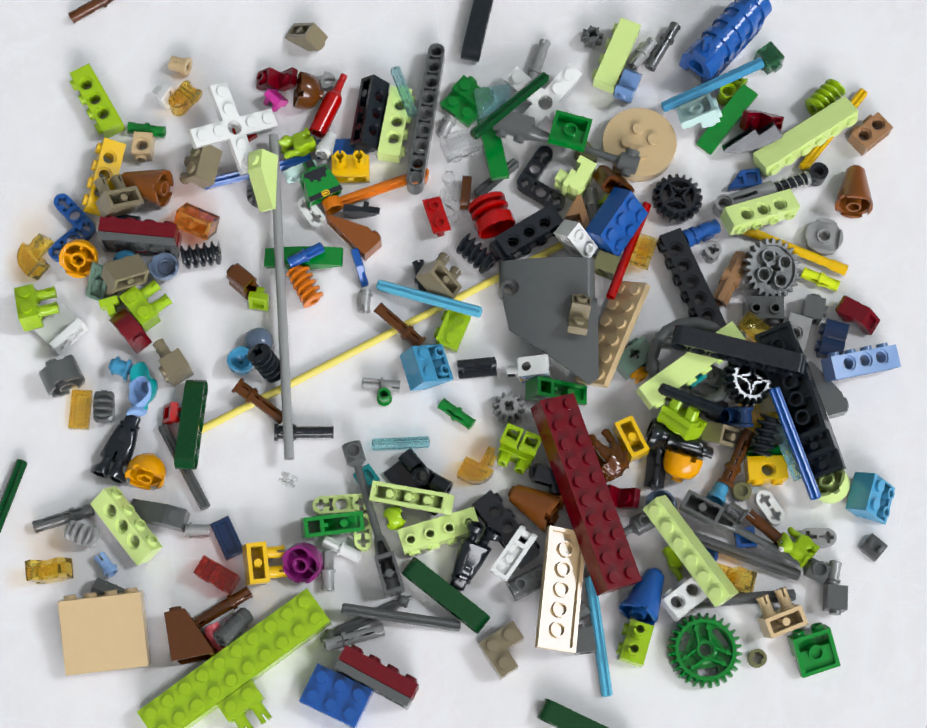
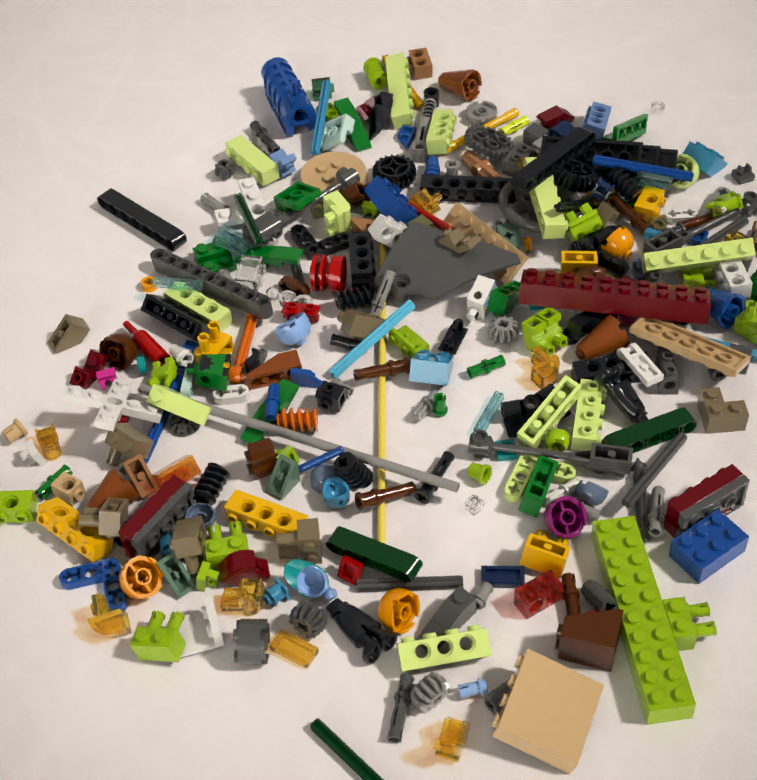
camera: 55 degrees left, 25 degrees down
(101, 345) = (245, 598): none -> clear yellow brick
(179, 193) = (140, 476): none -> medium nougat slope
(190, 289) = (261, 514): none -> yellow brick
(236, 309) = (284, 477): none -> sand green slope
(264, 326) = (321, 459): none -> blue bar
(302, 119) = (141, 365): none -> teal tile
(325, 468) = (480, 472): none -> lime piece
(345, 298) = (331, 396): none -> black brick
(345, 572) = (591, 493): none -> sand blue hair
(406, 222) = (294, 330): none -> light blue cylinder
(407, 58) = (147, 288): none -> light orange bush
(468, 282) = (388, 278): none -> light grey pin
(860, 400) = (629, 129): none -> green fence

